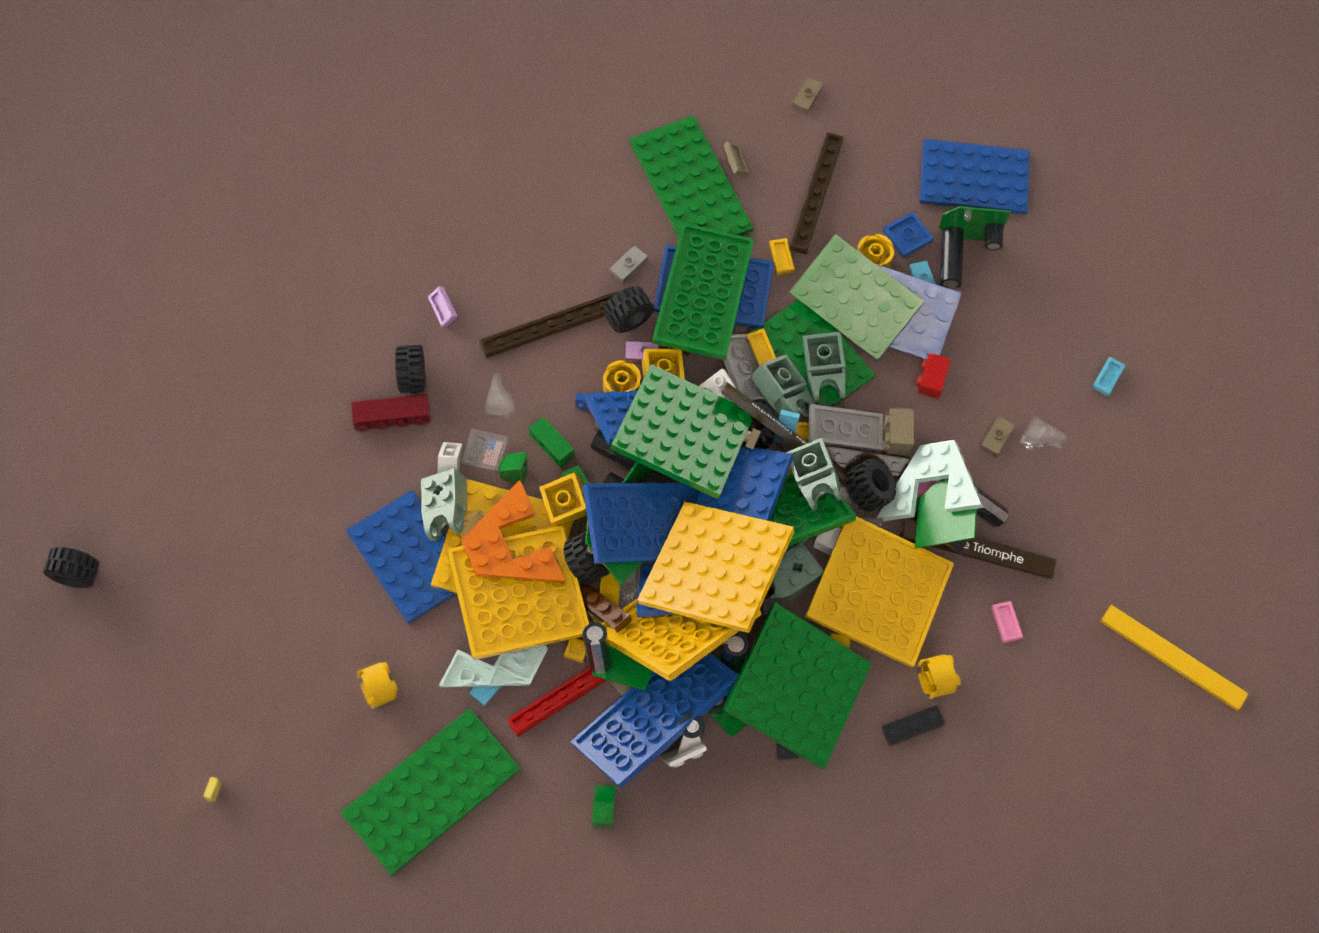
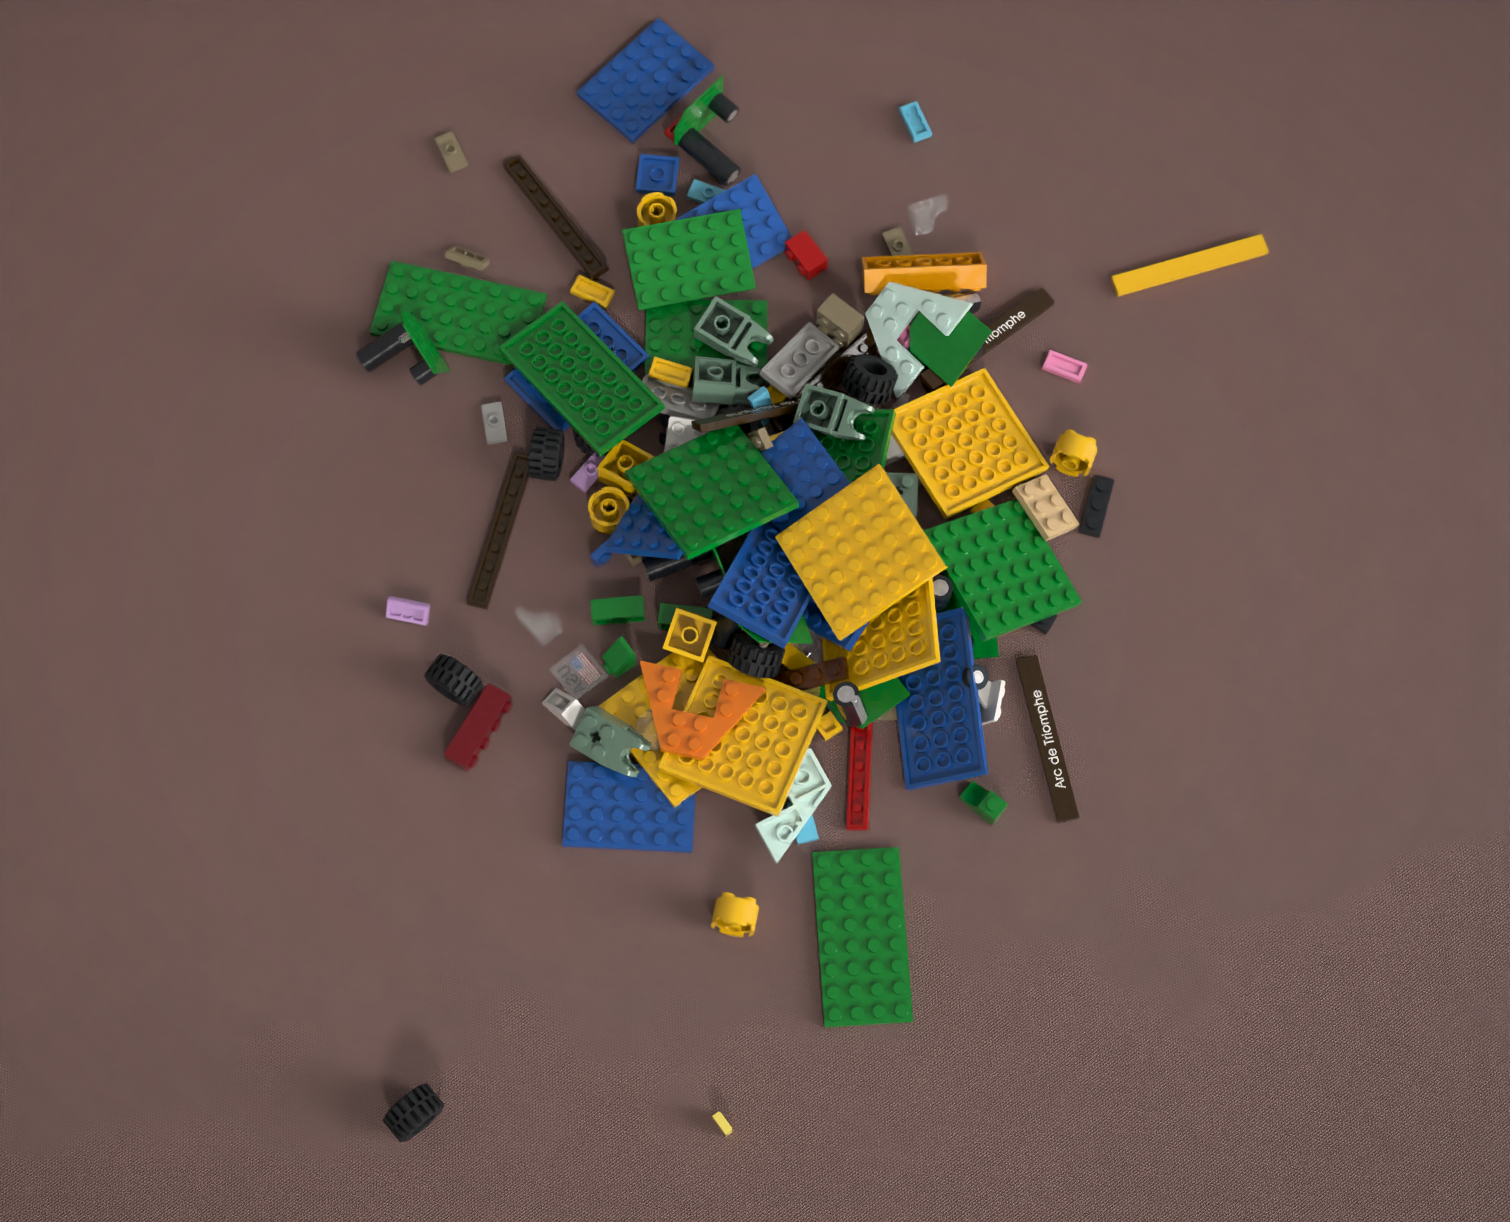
camera: 50 degrees left, 5 degrees up
(641, 169) = (399, 338): none -> piece
(692, 820) = (1047, 739): none -> dark brown tile
(878, 687) = (1045, 507): none -> tan plate
(991, 465) = (925, 272): none -> light orange brick

